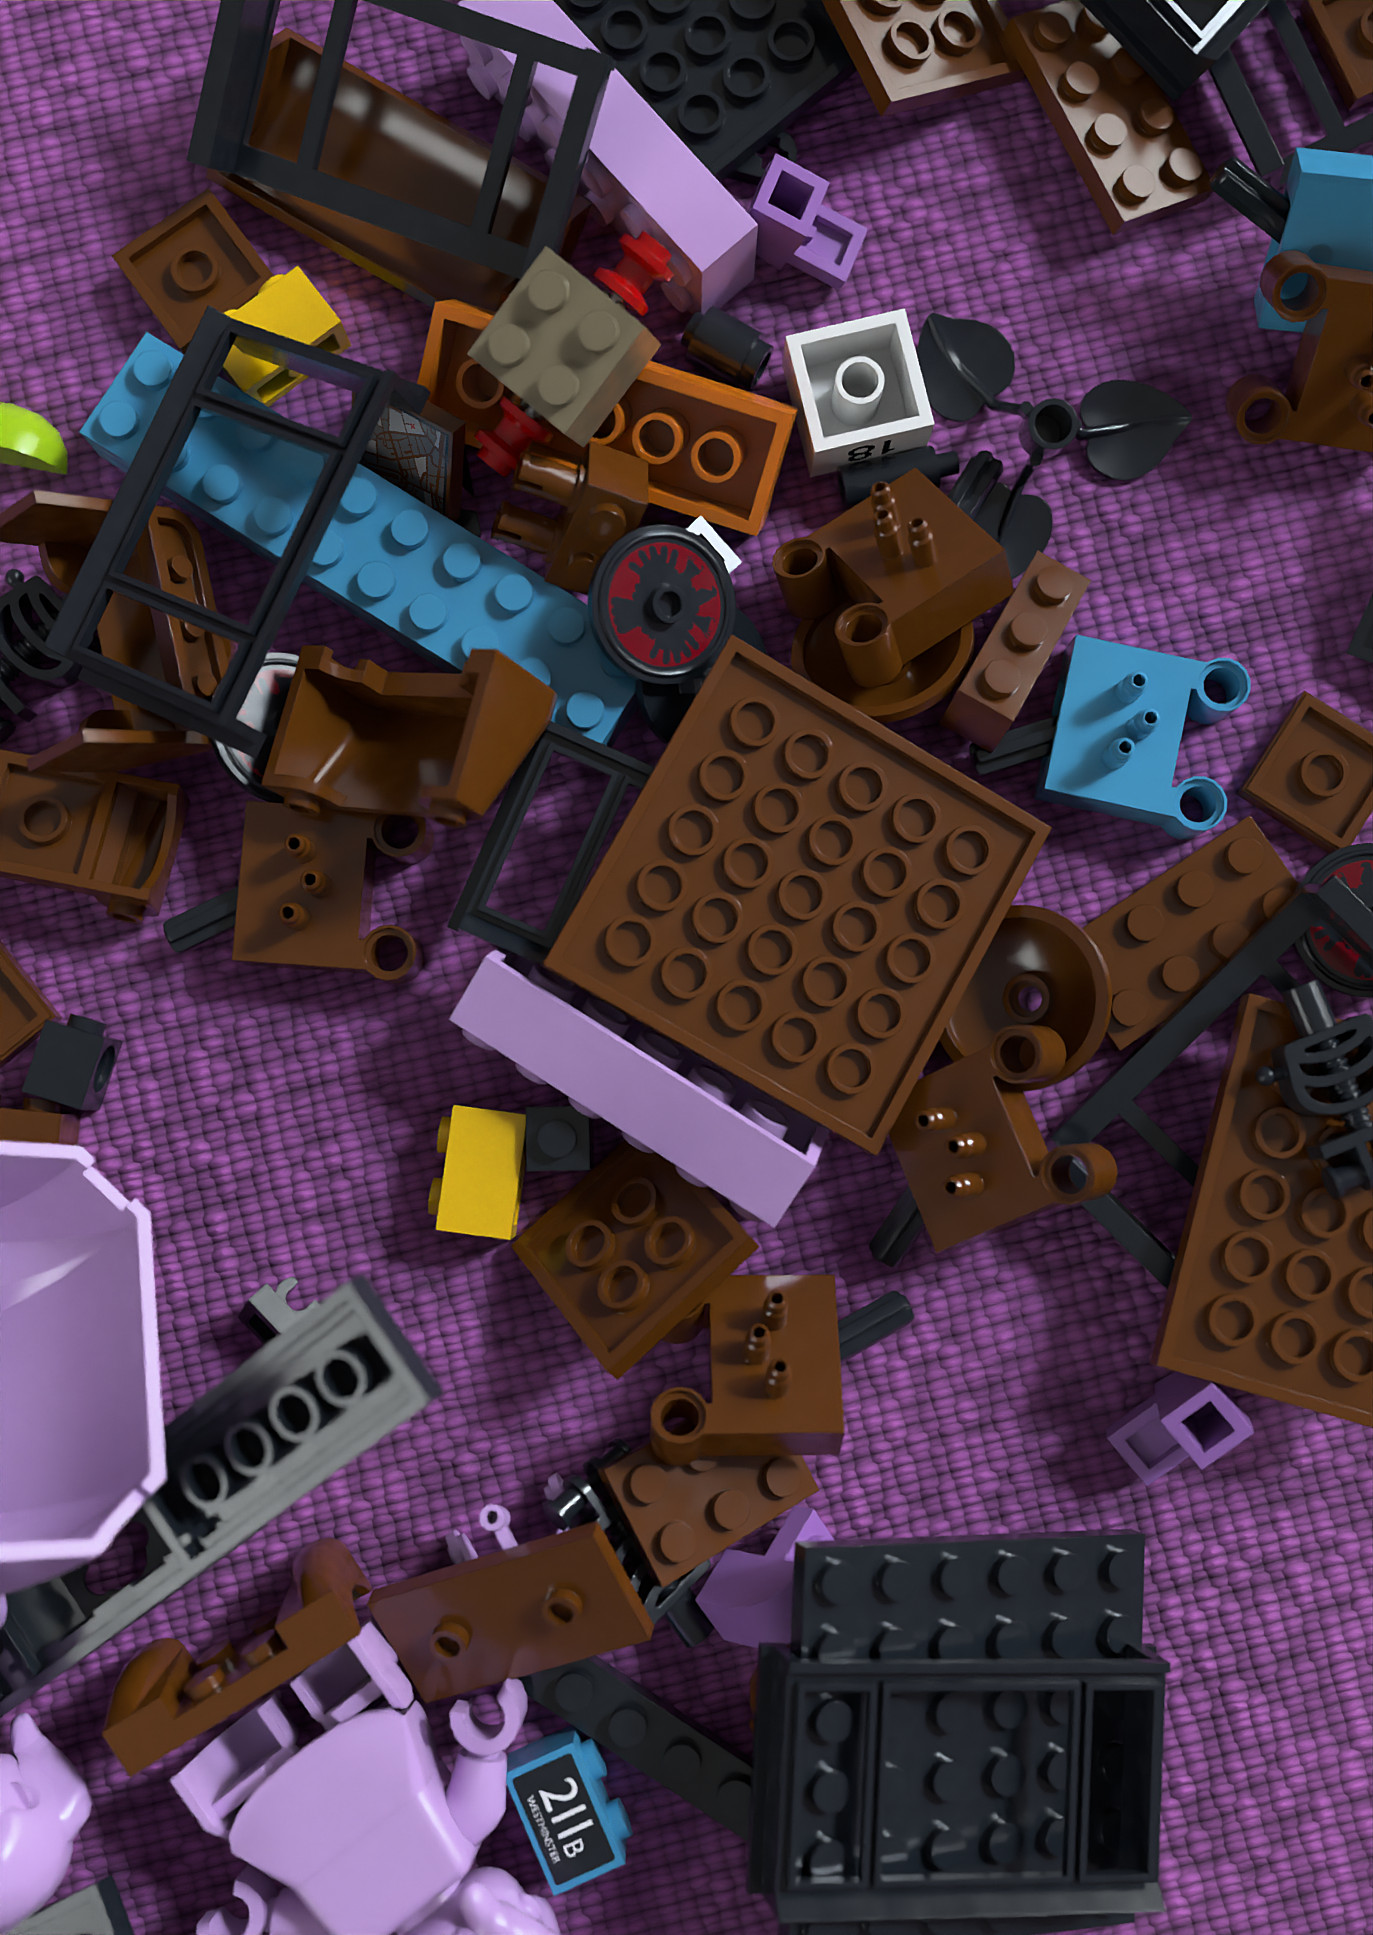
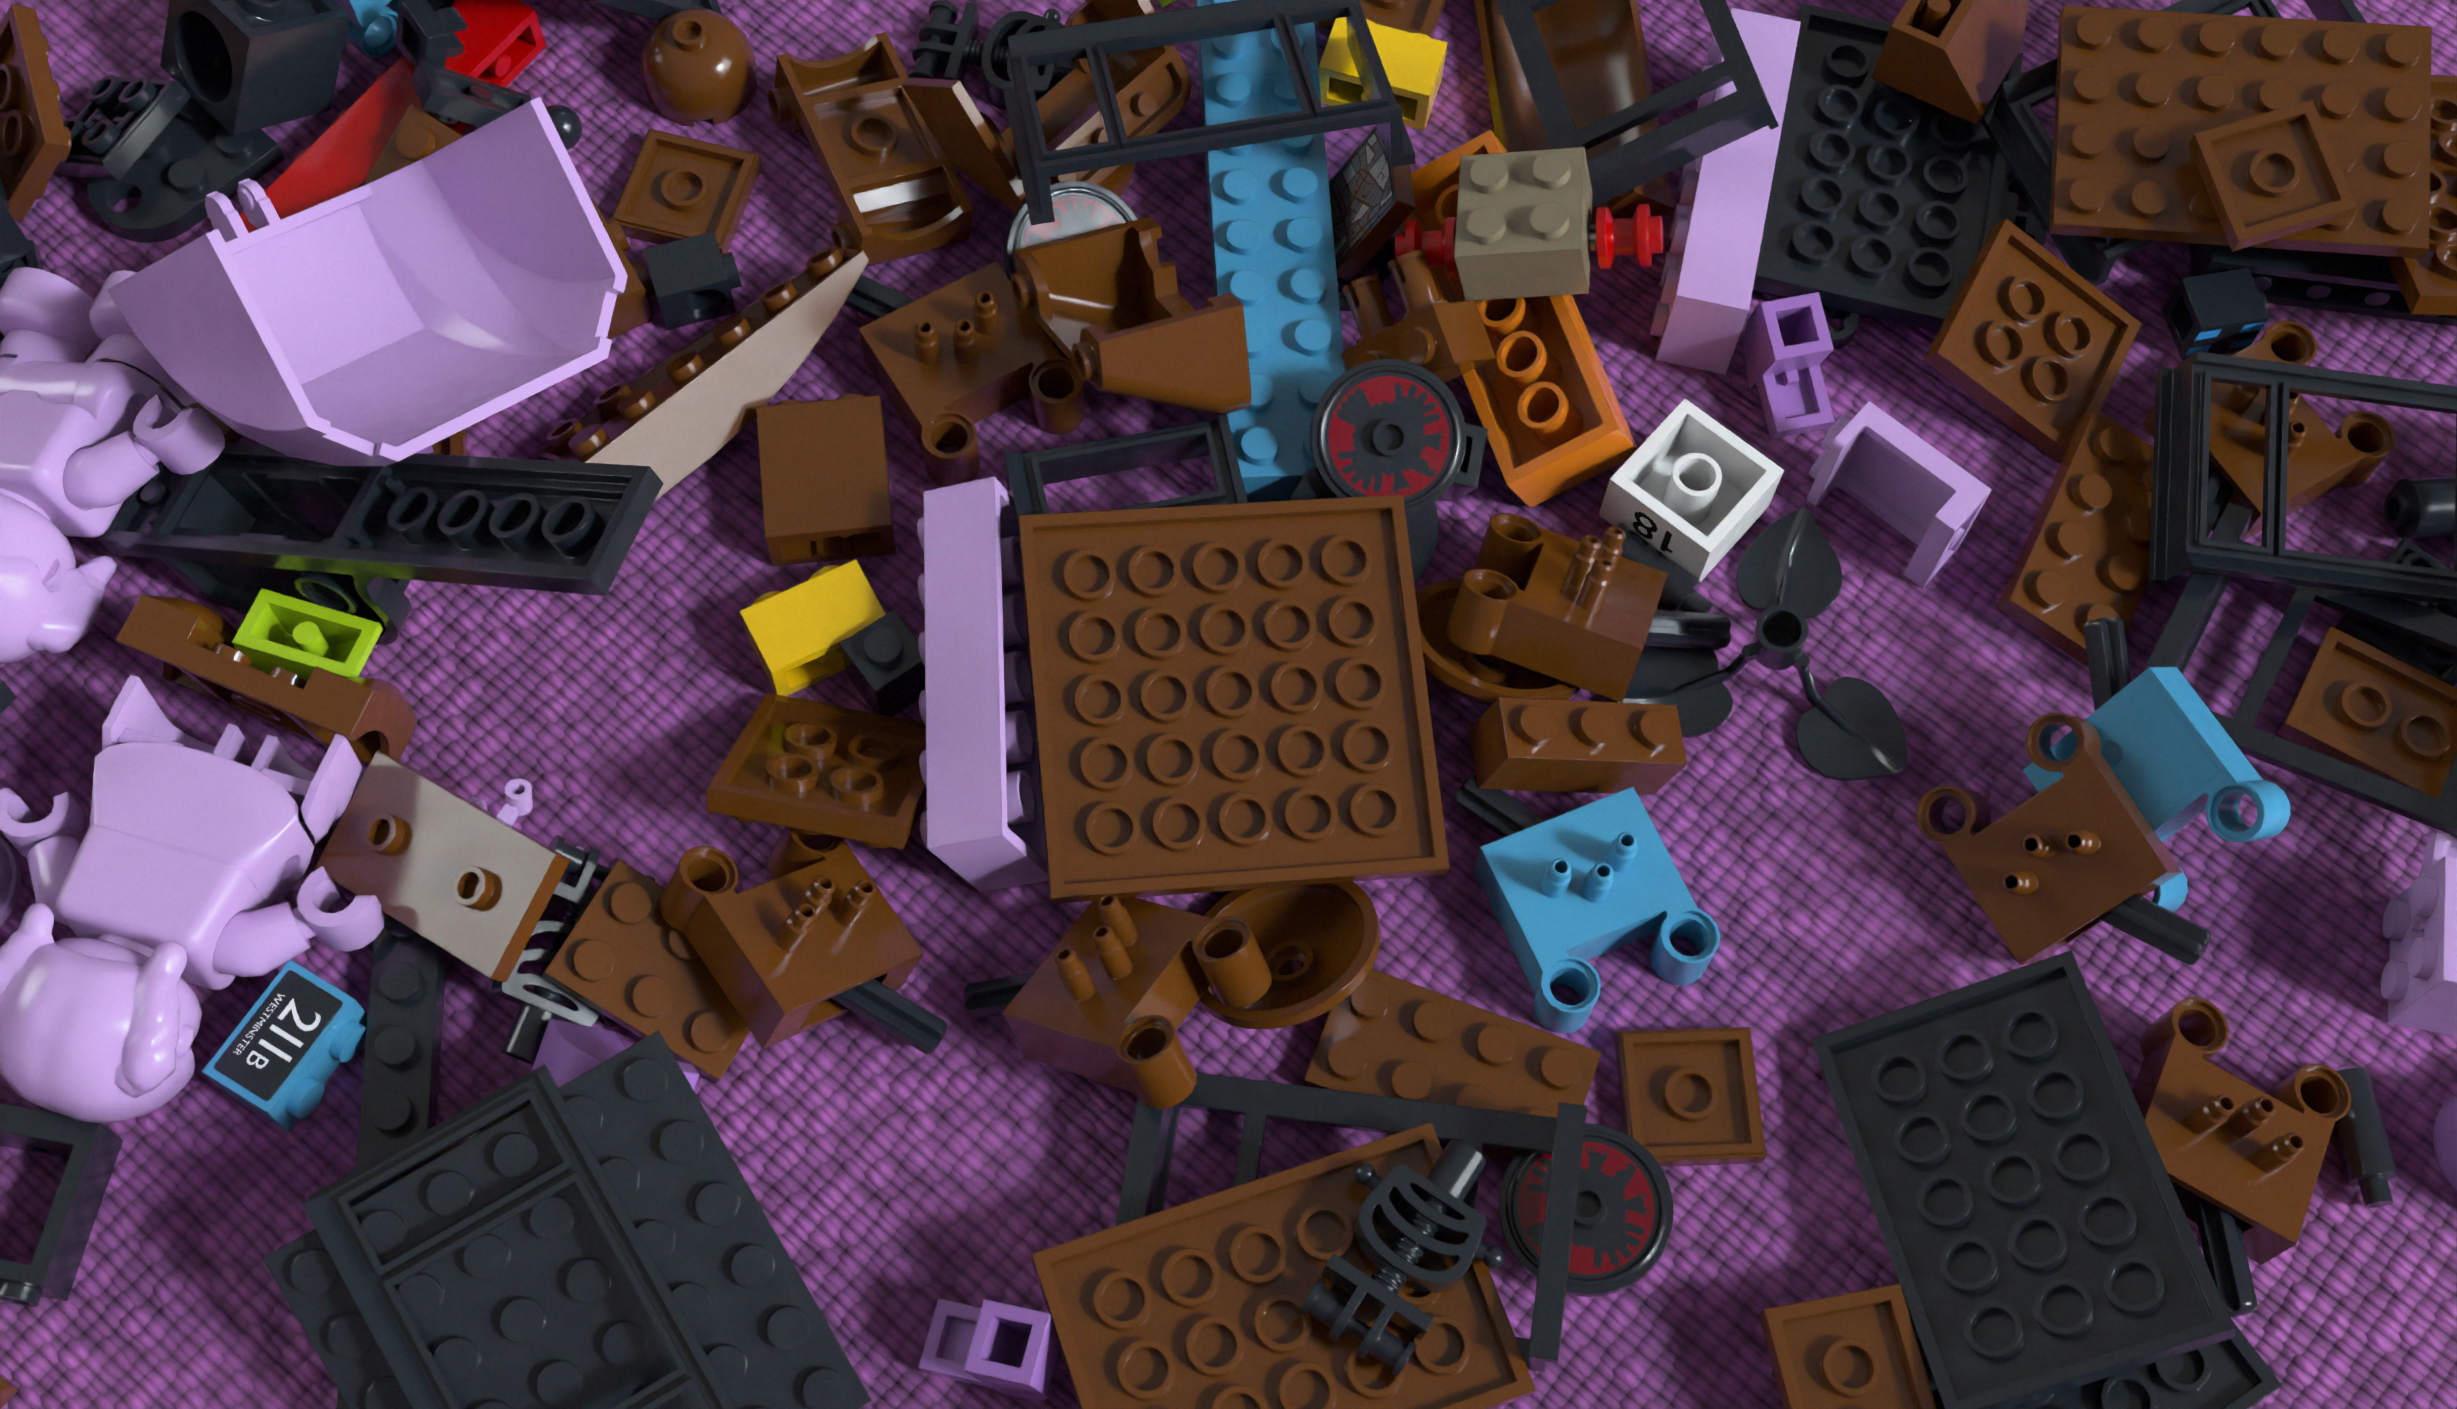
camera: 50 degrees right, 20 degrees down
(193, 1123) = (711, 387): none -> wedge
(219, 1601) = (304, 635): none -> lime slope
(346, 1075) = (825, 480): none -> reddish brown brick
(726, 348) = (1646, 380): black brick -> none
(976, 219) = (1902, 484): none -> lavender panel

